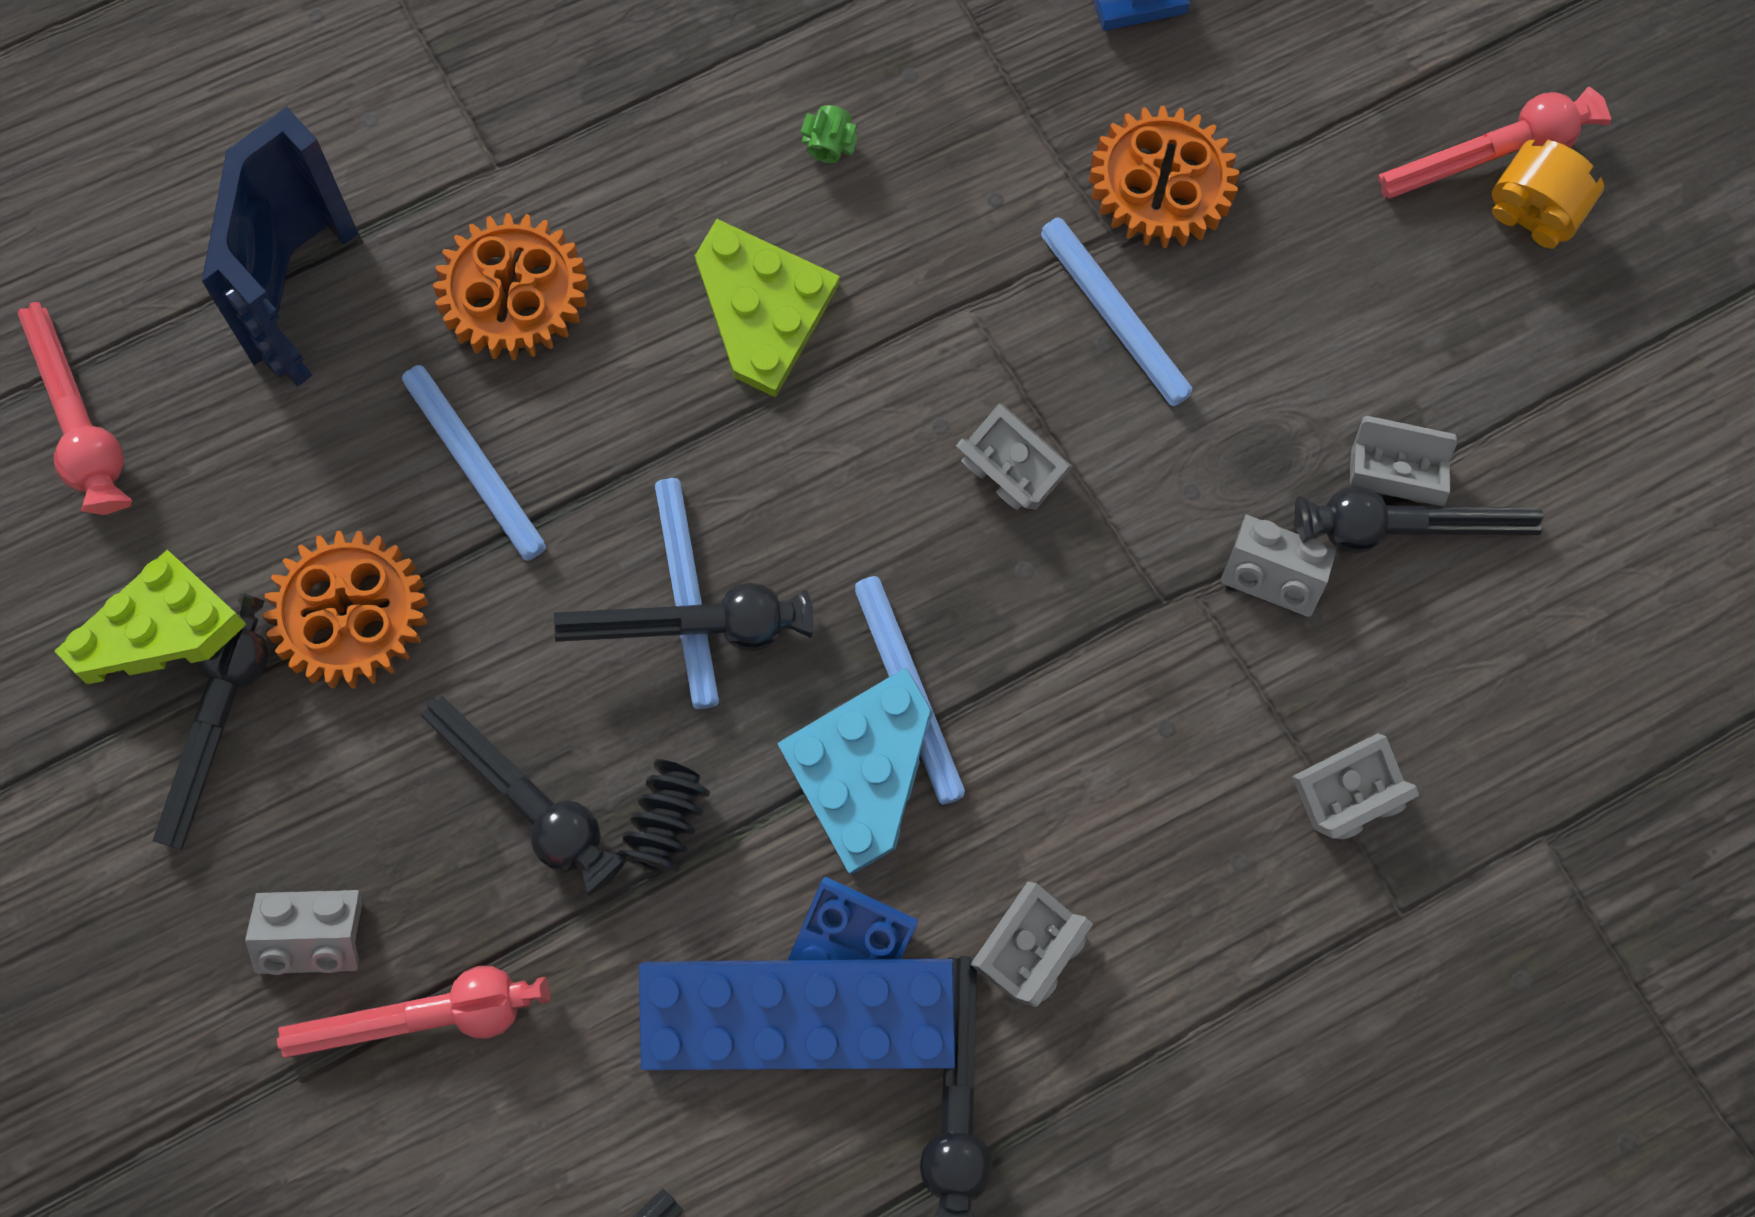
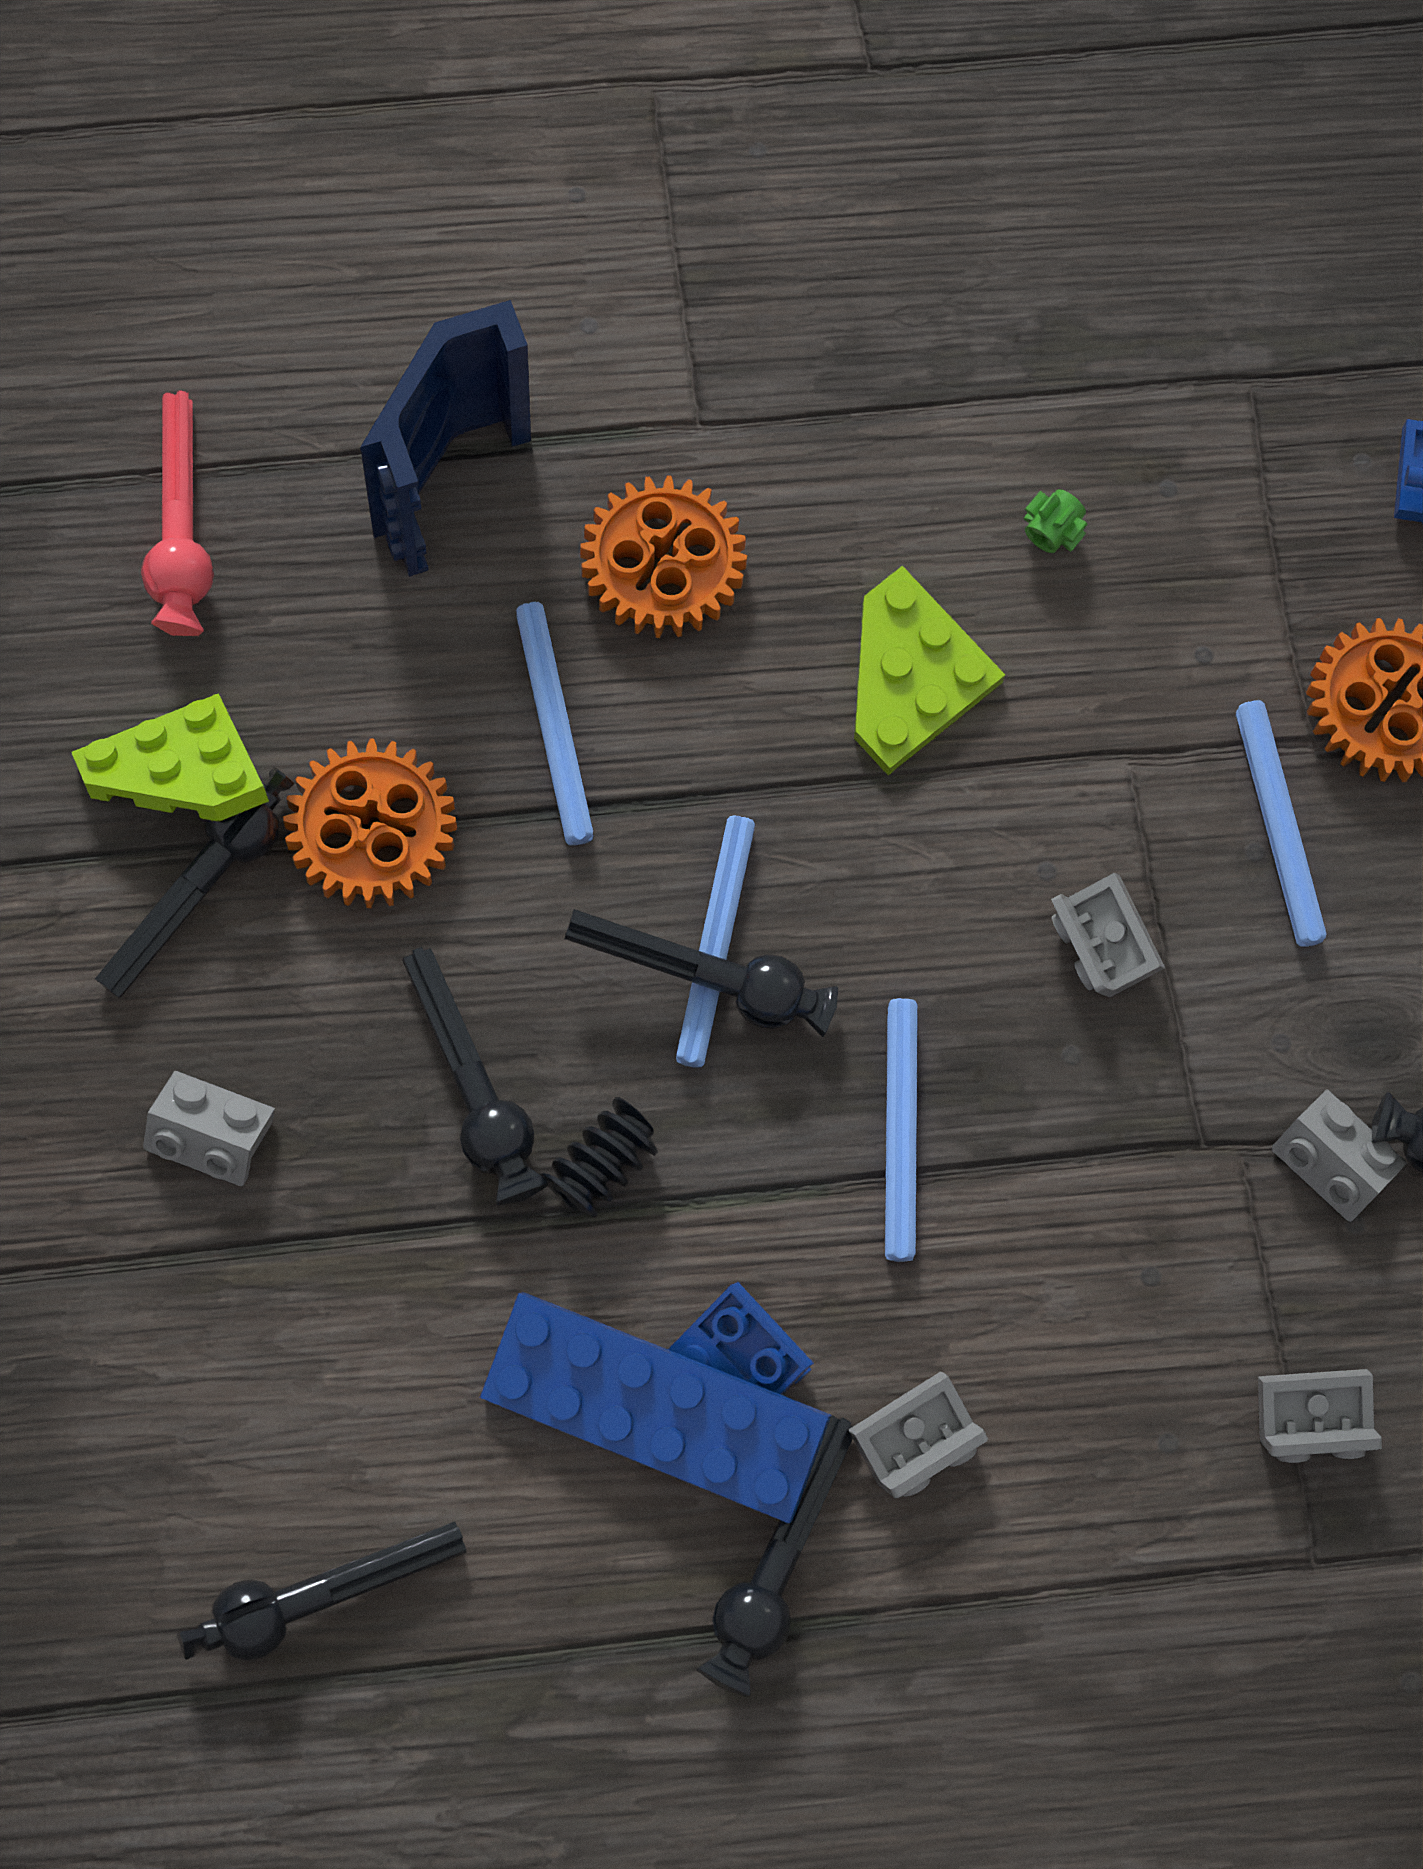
camera: 20 degrees right, 0 degrees up
(479, 1004) = (348, 1267): coral piece -> none
(863, 766) = (821, 1188): medium azure plate -> none

